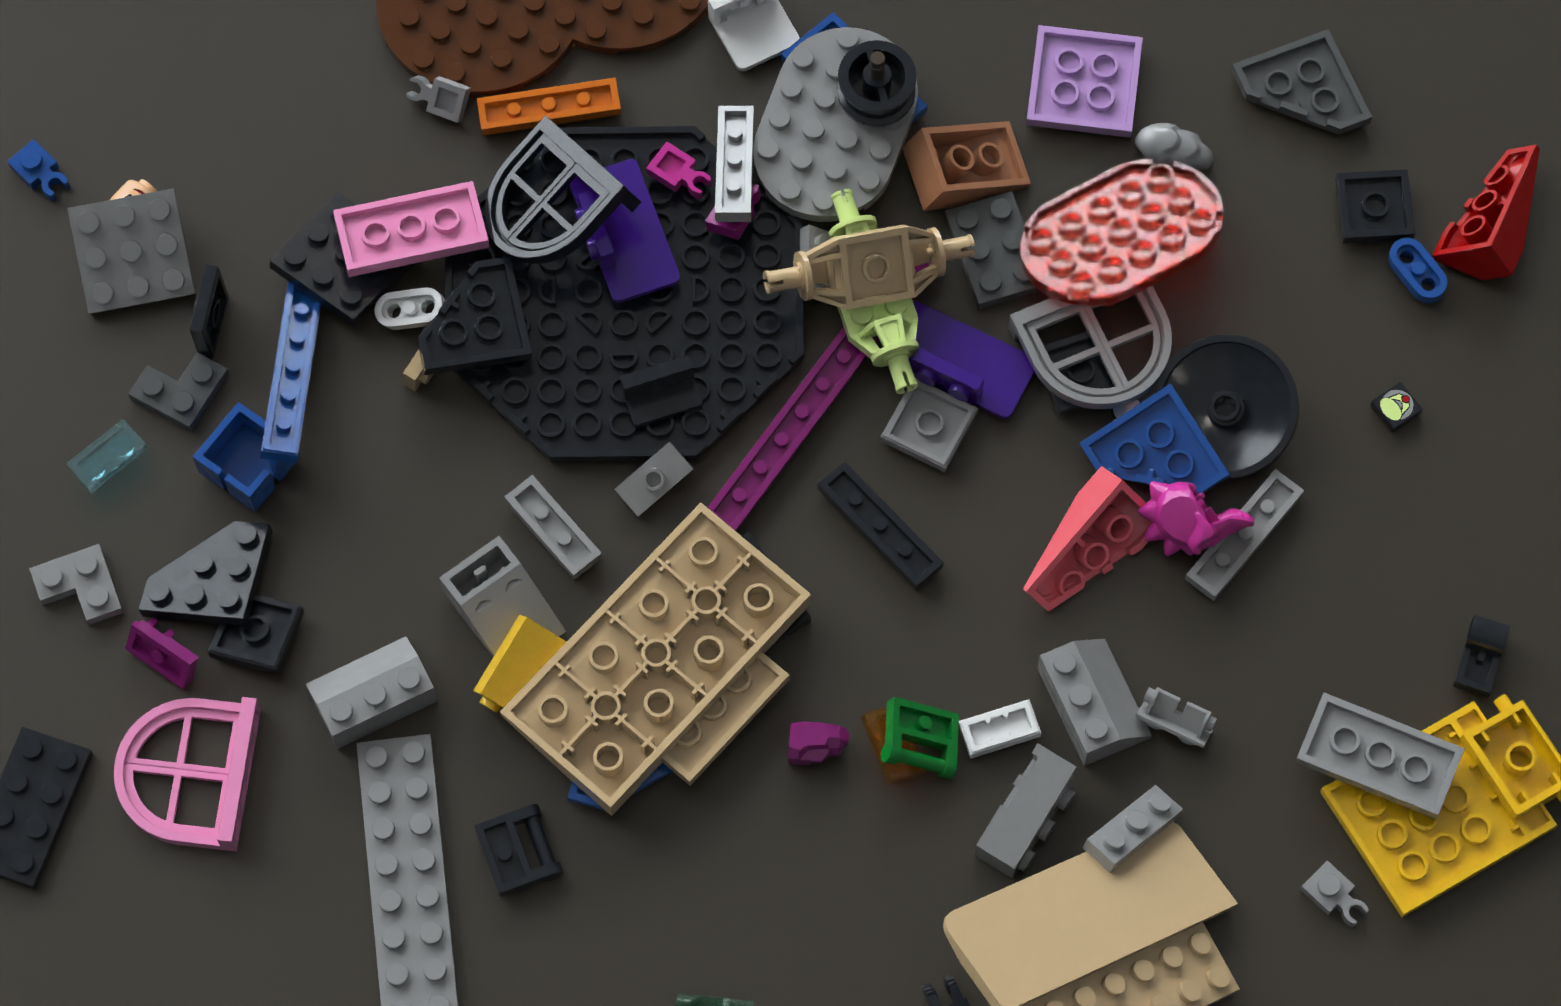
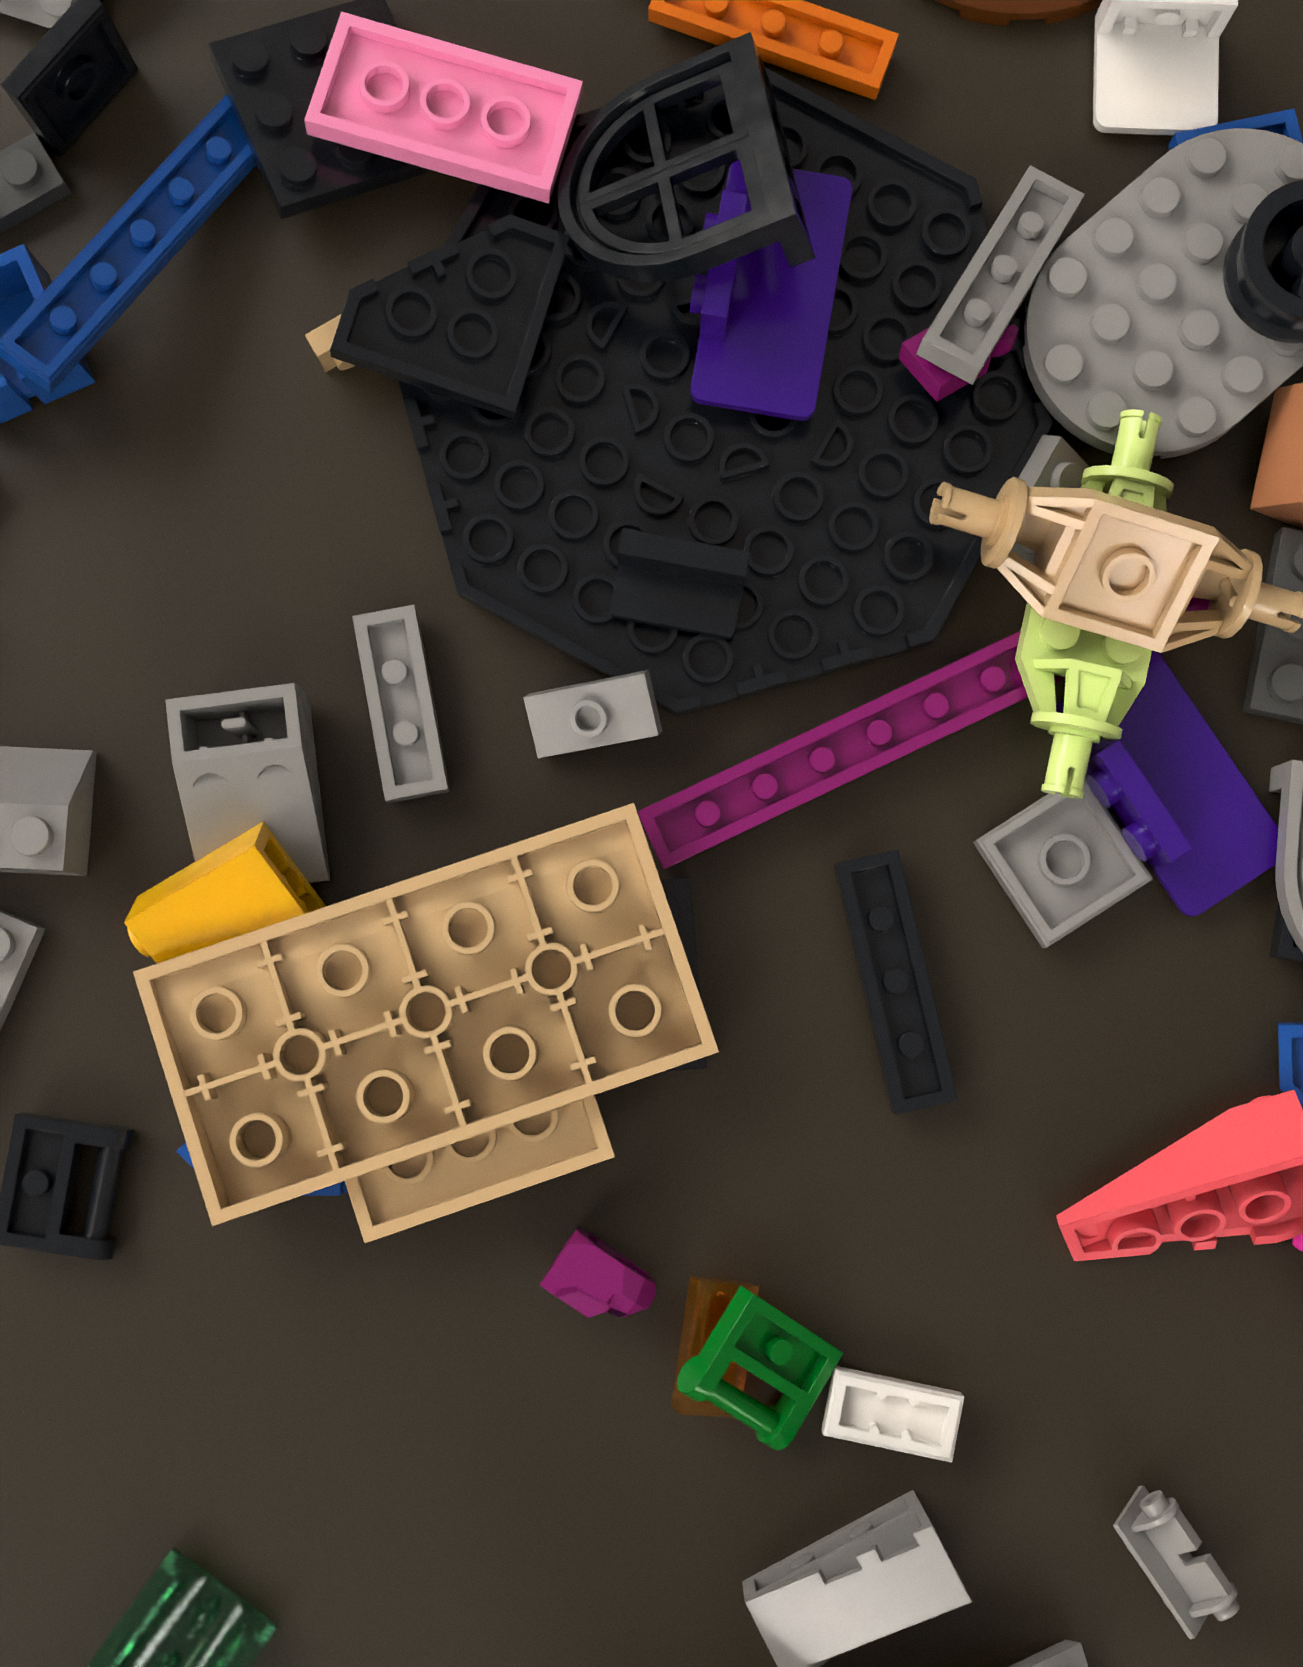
camera: 30 degrees right, 15 degrees up
(412, 306) = (388, 235): white plate -> none
(675, 169) = (905, 231): dark pink plate -> none
(1092, 699) = (1061, 1453): light grey slope -> none

